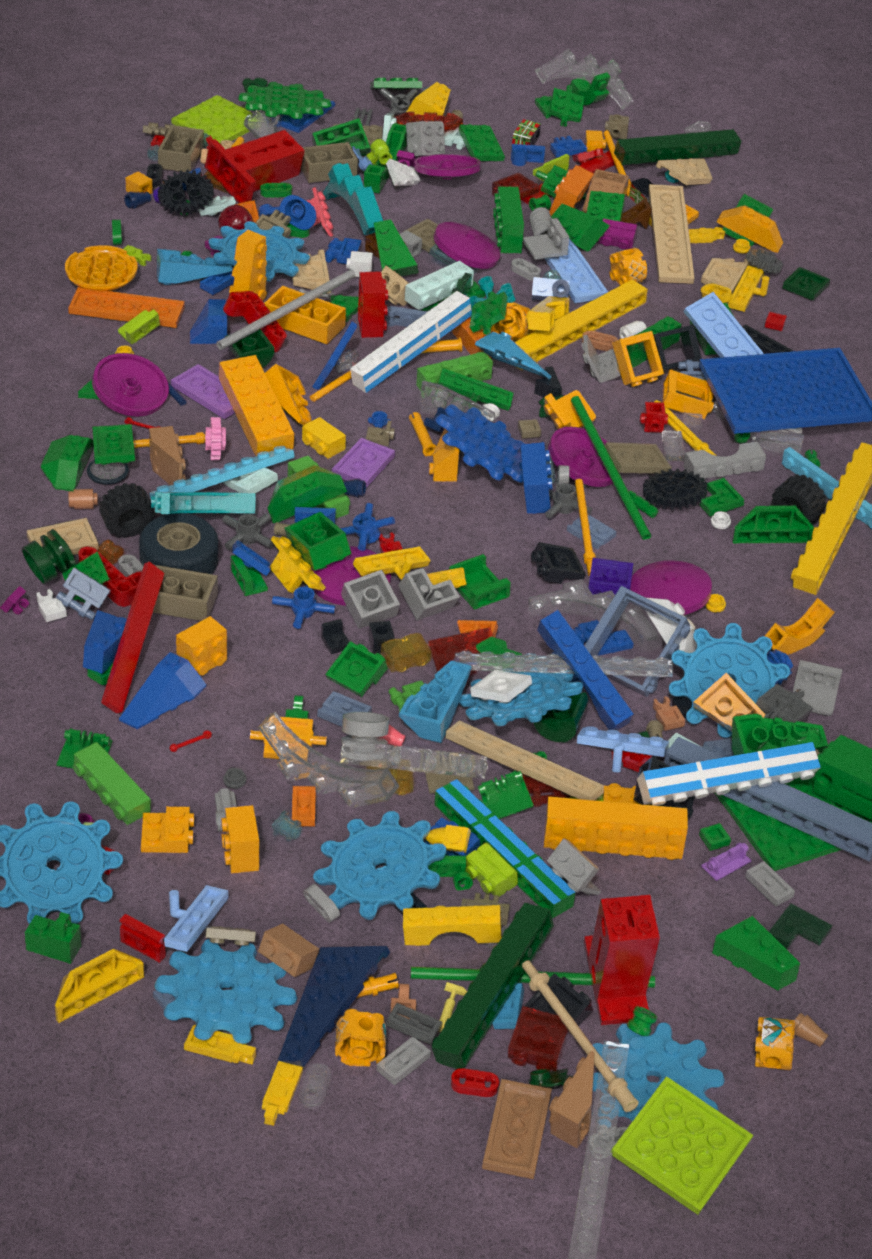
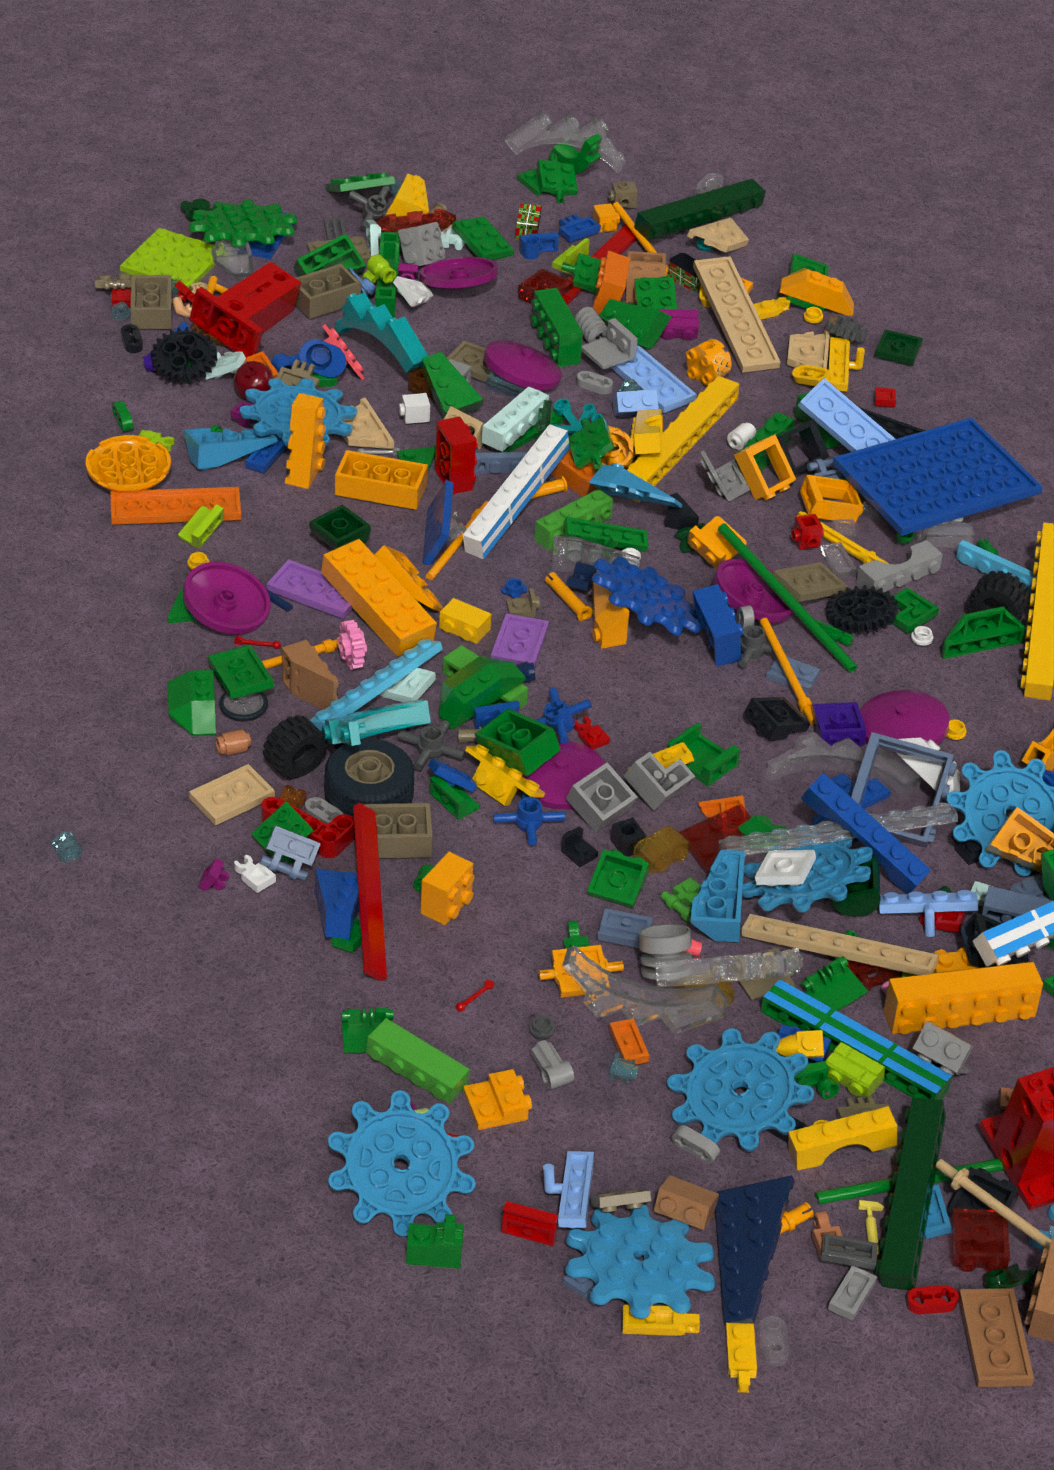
camera: 15 degrees left, 0 degrees up
(52, 554) = (233, 817): dark green wheel -> none
(96, 981) = (502, 1281): yellow wedge -> none
(136, 199) = (125, 372): dark blue cone -> none
(138, 183) = (121, 354): light orange brick -> none
(166, 687) = (426, 942): blue wedge -> none
(210, 324) = (279, 507): blue wedge -> none
(240, 839) = (586, 1093): light orange brick -> none
(253, 308) = (330, 489): red beam -> none
(275, 190) = (279, 334): green beam -> none
(284, 310) = (364, 479): light grey piece -> none
(342, 249) = (392, 394): blue plate -> none
(360, 1038) = (804, 1279): light orange brick -> none
(395, 561) = (613, 747): yellow plate -> none
(529, 428) = (679, 569): dark tan plate -> none
(543, 201) = (577, 301): green bush -> none
(556, 292) = (645, 400): plate -> none
(585, 156) = (601, 236): red plate -> none
(600, 340) = (716, 452): nougat plate -> none
(639, 212) = (692, 295): reddish brown slope -> none
(654, 729) = (952, 881): dark tan pin -> none
(668, 716) = (958, 864): nougat plate -> none

